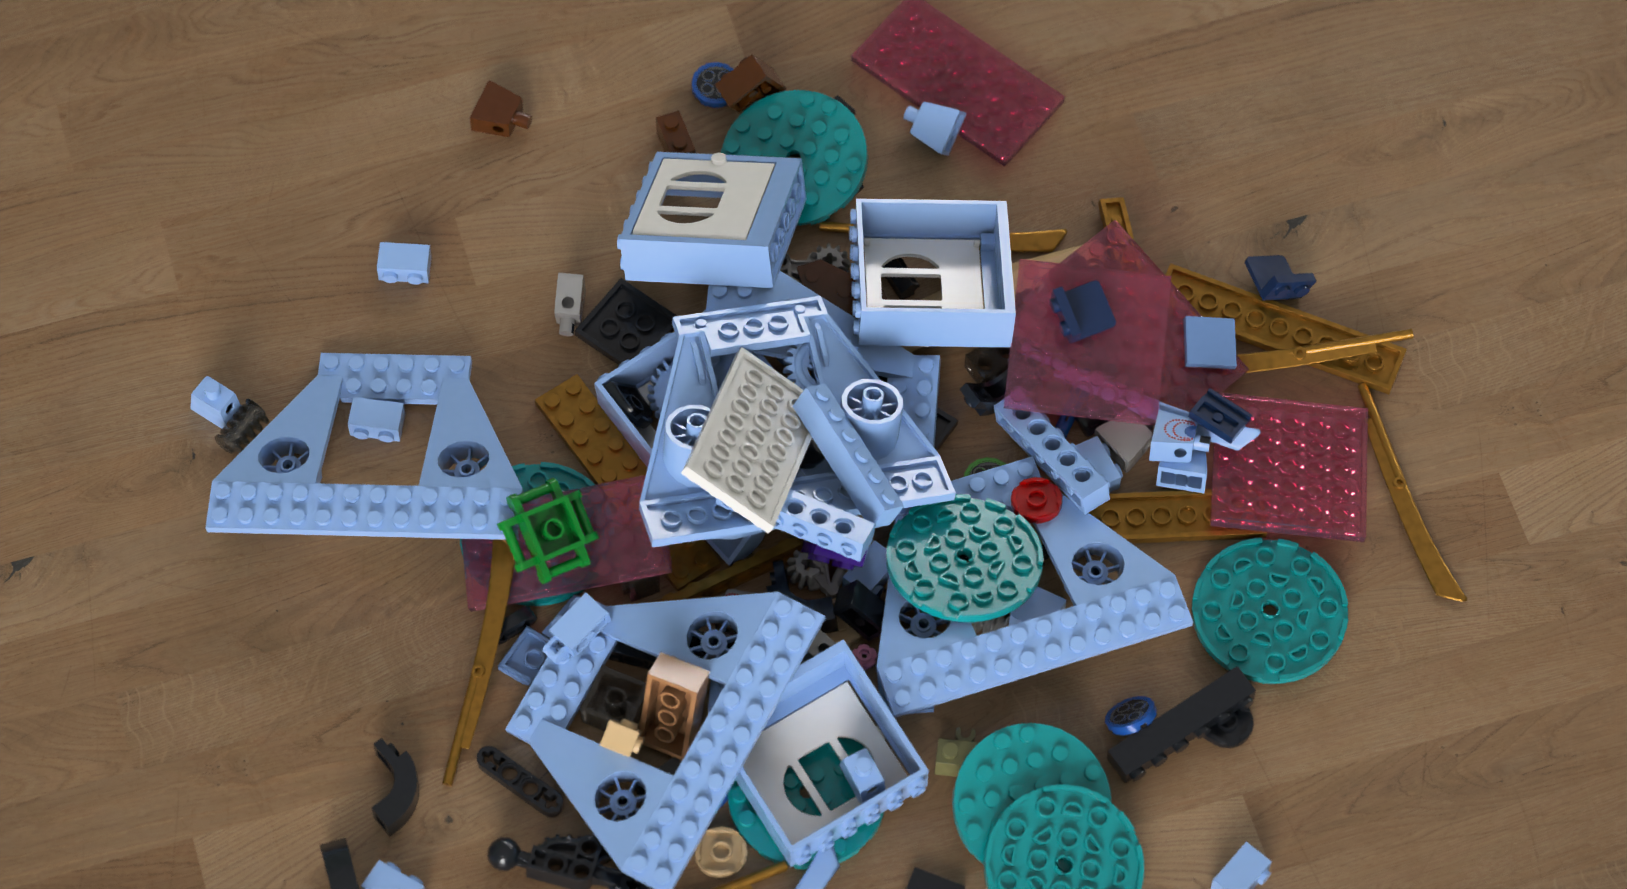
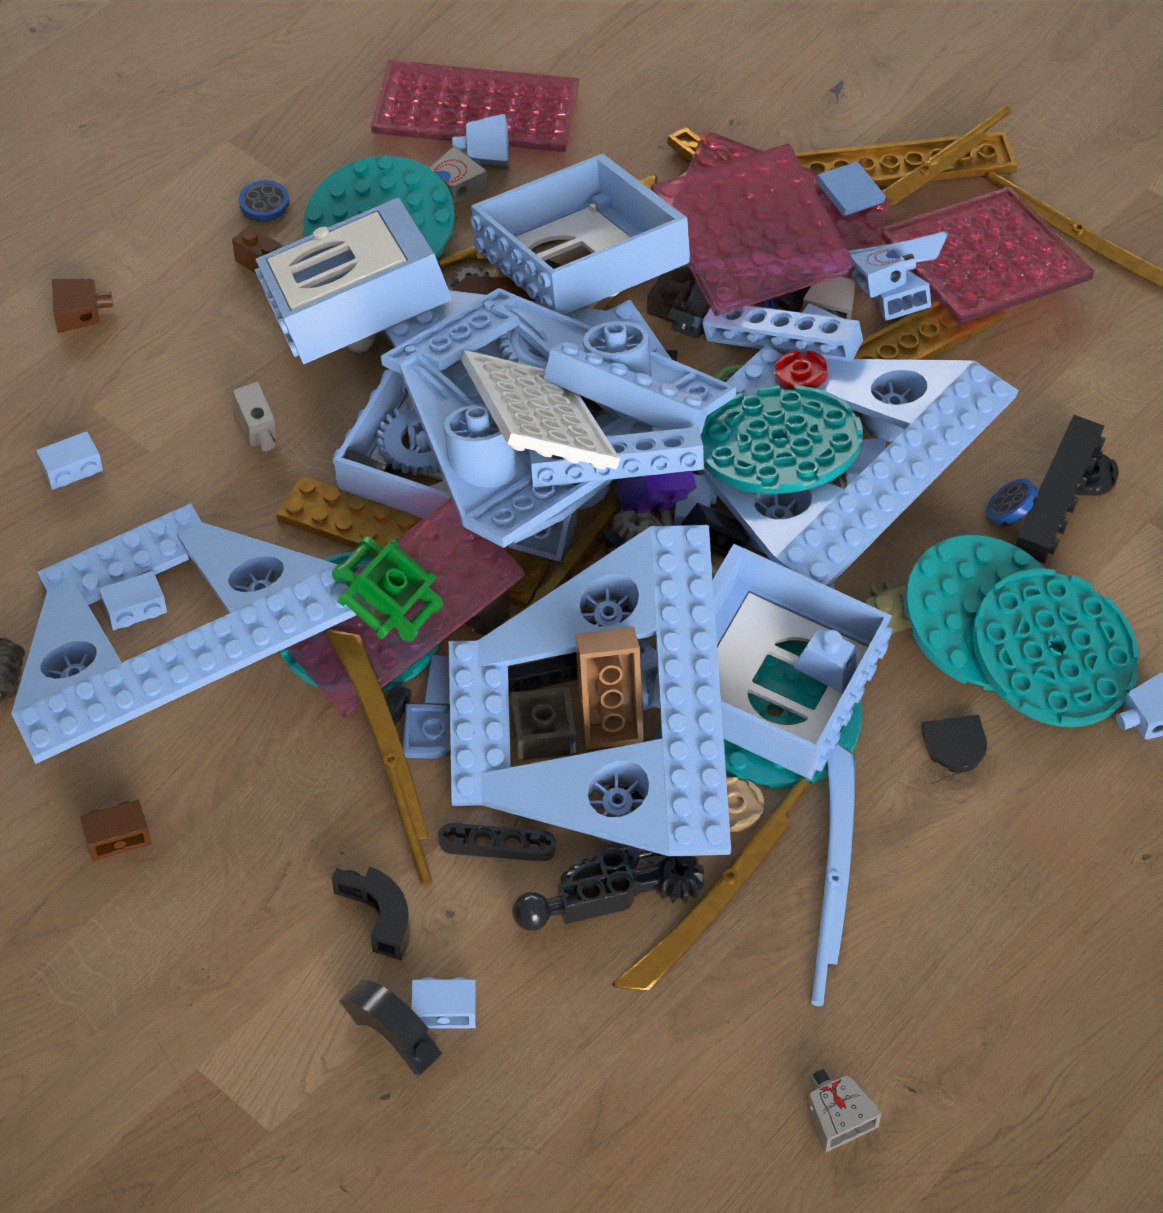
camera: 30 degrees left, 10 degrees down
(246, 612) = (115, 829): none -> reddish brown brick
(576, 628) = (466, 667): light blue brick -> none
(622, 737) = (582, 735): tan brick -> none
(625, 323) = (318, 414): black plate -> none
(748, 82) = (297, 178): reddish brown brick -> none
(890, 146) = (460, 175): none -> light grey torso
(1082, 311) = (736, 198): dark blue bracket -> none
(1220, 416) = (906, 233): dark blue plate -> none
(1264, 646) = (1094, 363): teal plate -> none
(1275, 278) = (873, 128): dark blue bracket -> none

